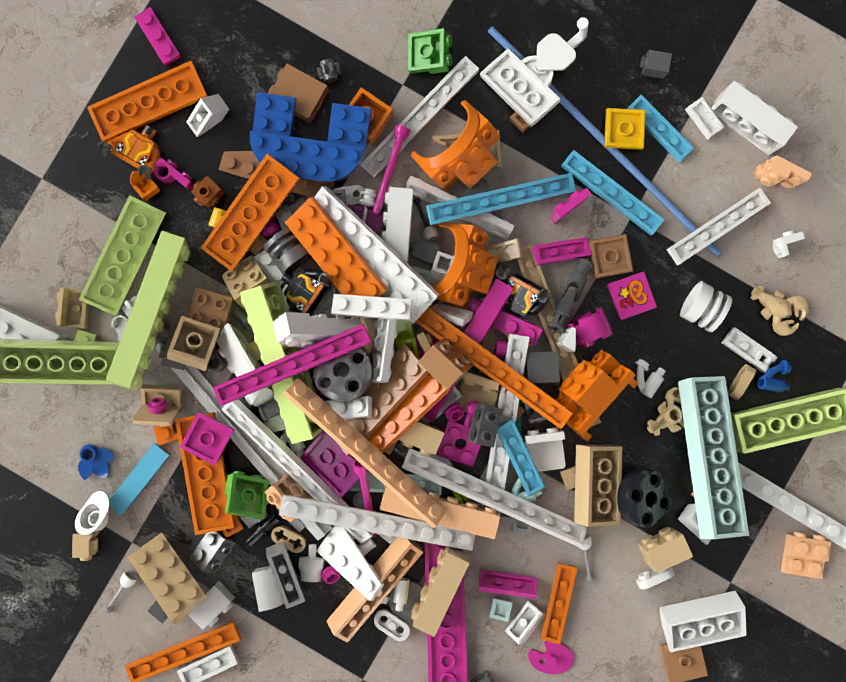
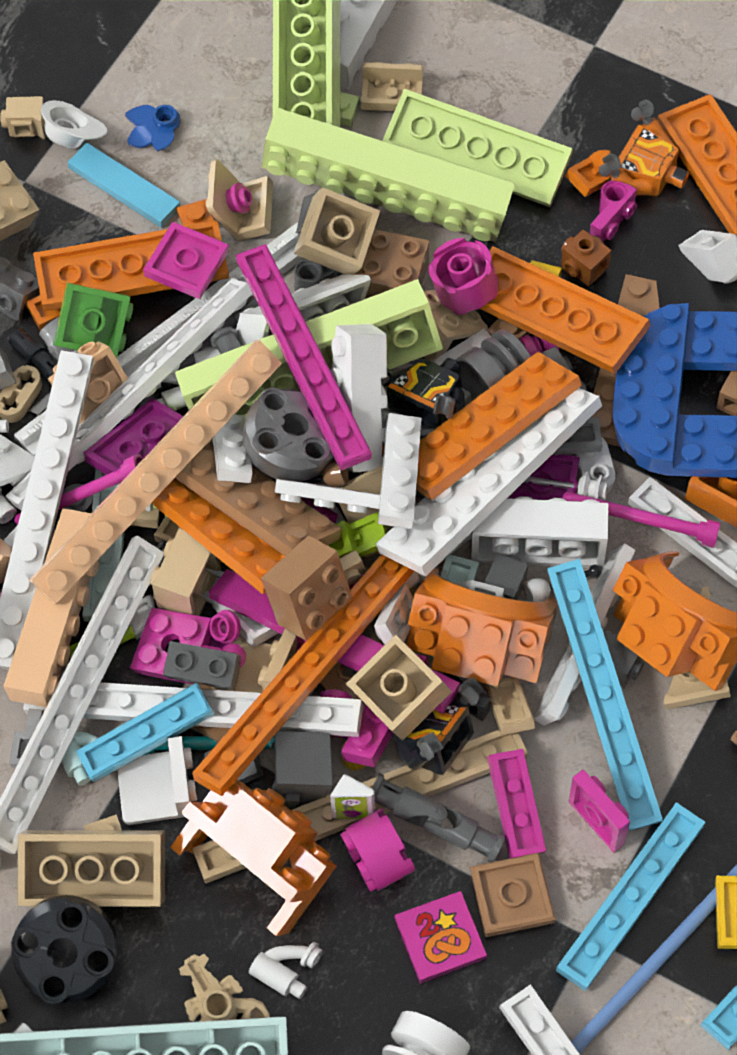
camera: 85 degrees right, 25 degrees down
(220, 256) = (463, 275): none -> dark pink brick
(508, 311) = (398, 687): none -> tan brick

